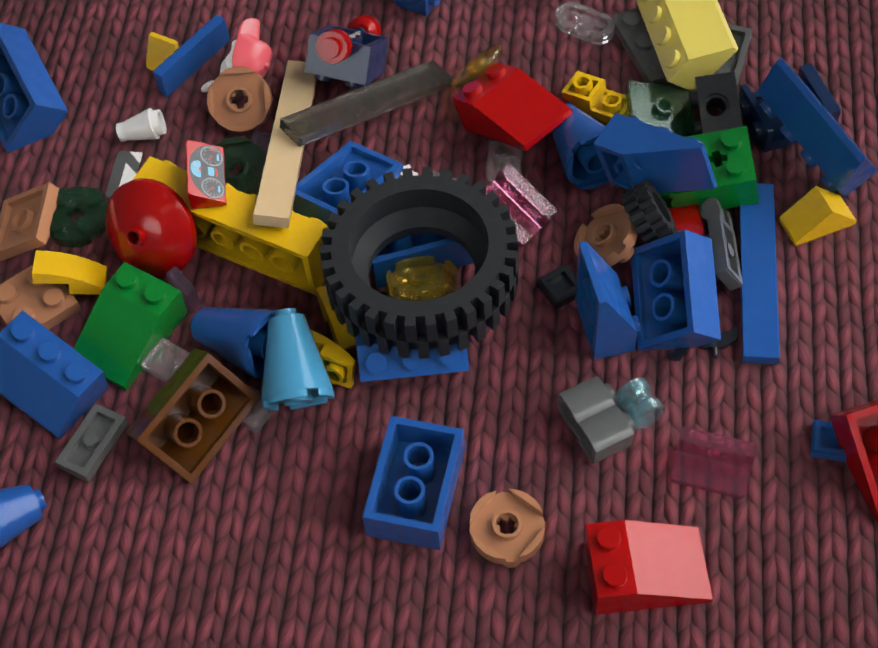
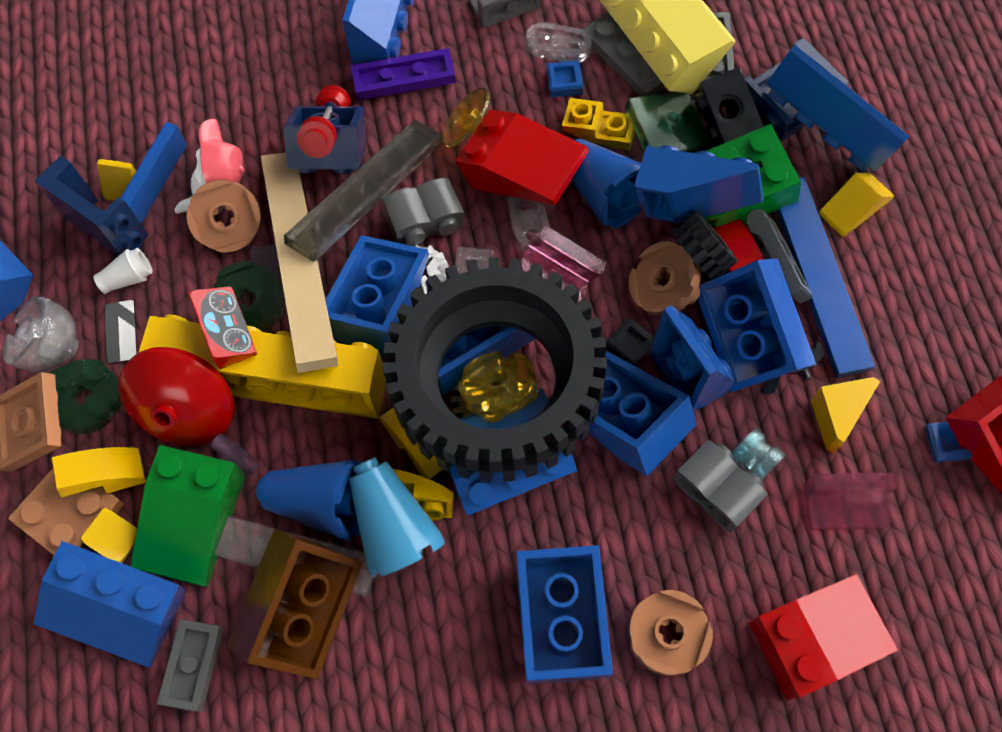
camera: 20 degrees left, 10 degrees up
(60, 158) = (43, 337): none -> clear cylinder
(63, 323) = (110, 536): none -> yellow slope
(142, 86) = (113, 228): none -> dark blue panel
(412, 134) = (423, 211): none -> dark grey brick
(435, 20) = (403, 74): none -> dark purple plate
(540, 342) = (640, 416): none -> blue slope
(580, 55) = (564, 79): none -> blue tile
(735, 382) = (839, 408): none -> yellow slope

